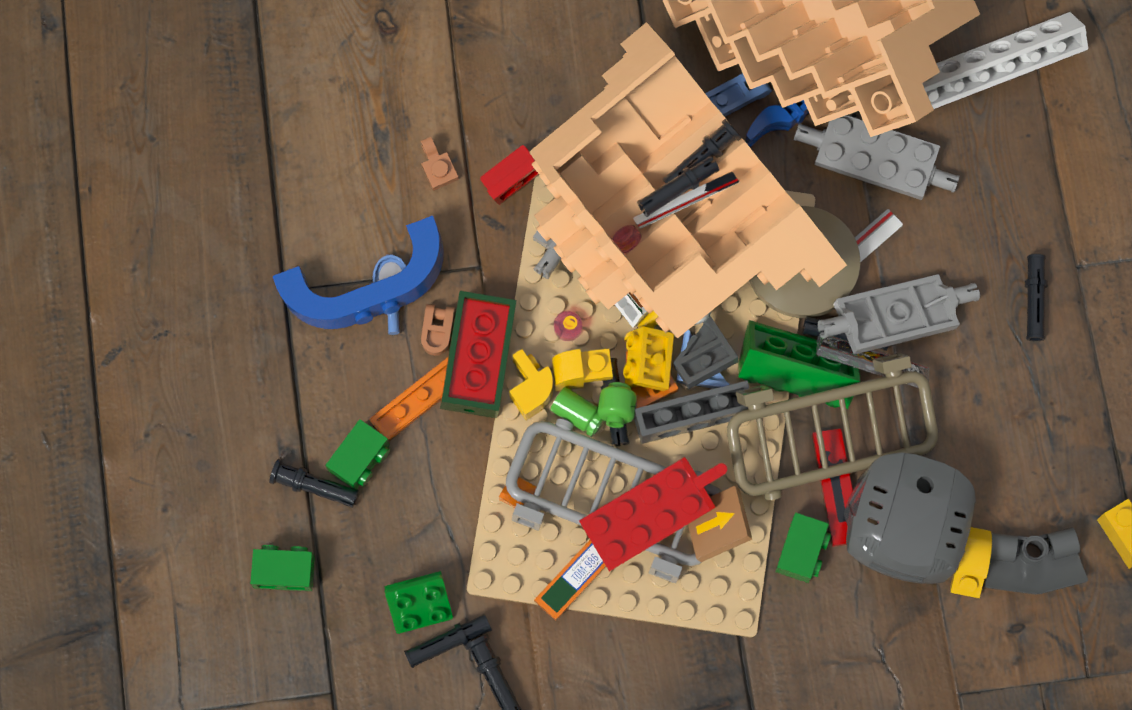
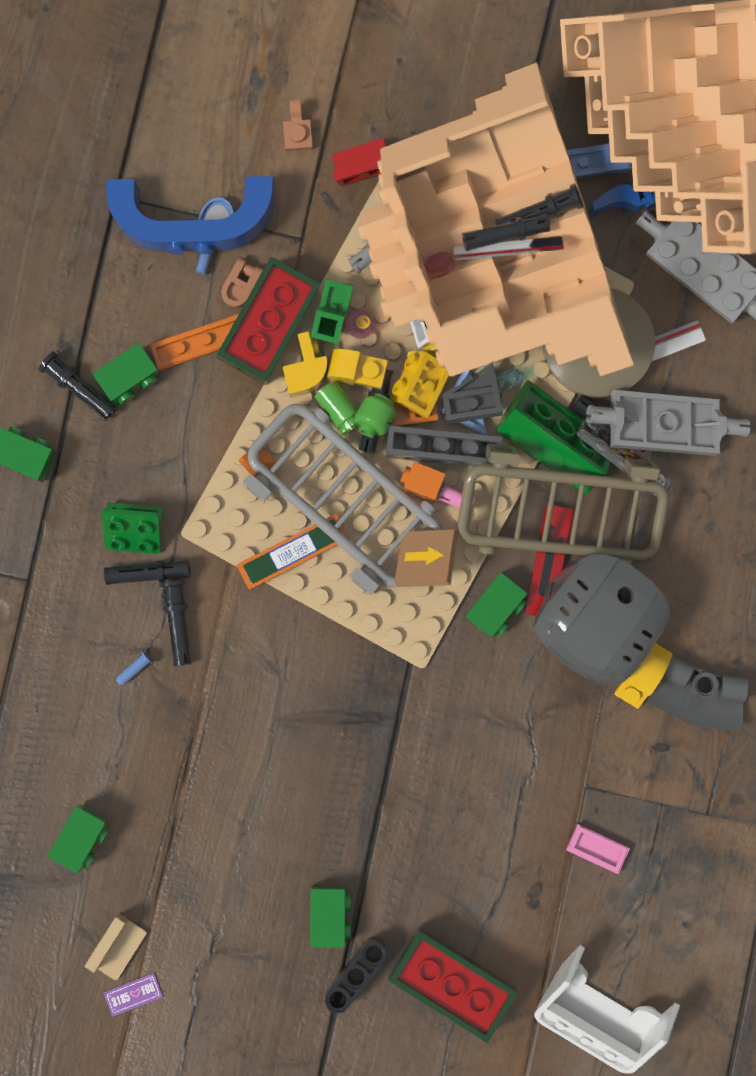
camera: 15 degrees right, 10 degrees up
(537, 321) = (333, 311): none -> green brick
(650, 512) = (369, 525): red hinge -> none
(686, 446) = (422, 481): none -> orange brick
(718, 456) = (452, 496): none -> bright pink pin
(732, 326) = (509, 379): none -> clear light blue arm

